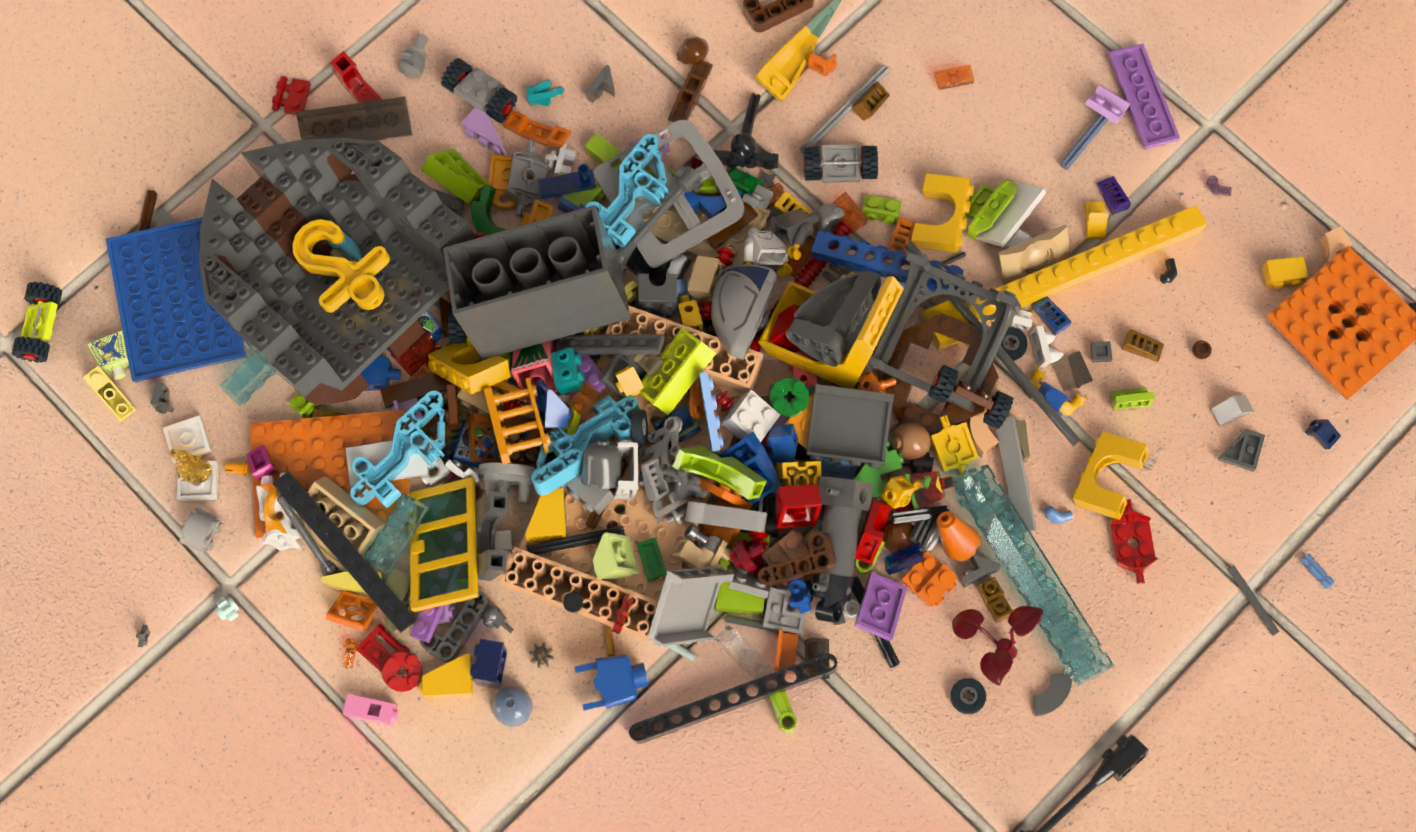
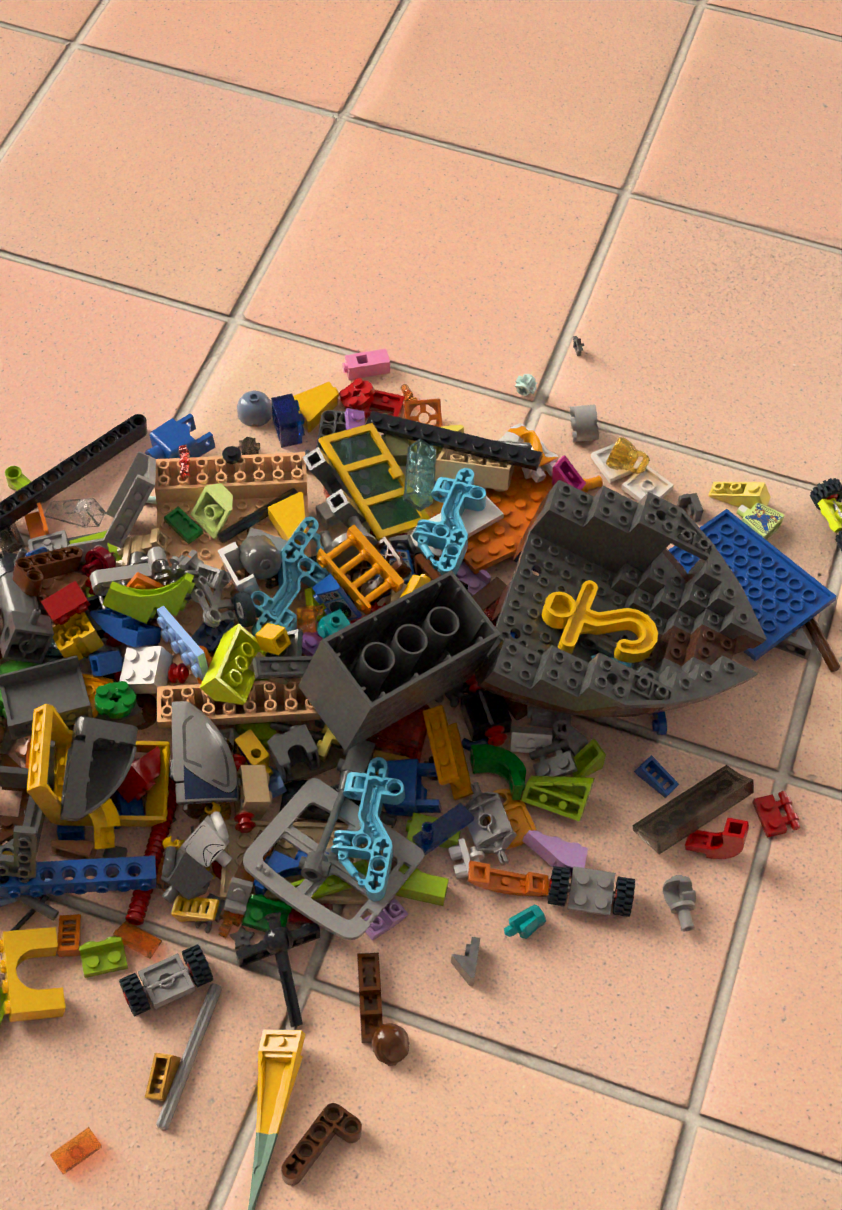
camera: 150 degrees right, 15 degrees down
(821, 65) = (240, 1093): orange bracket -> none
(828, 216) = (154, 914): light grey hair -> none

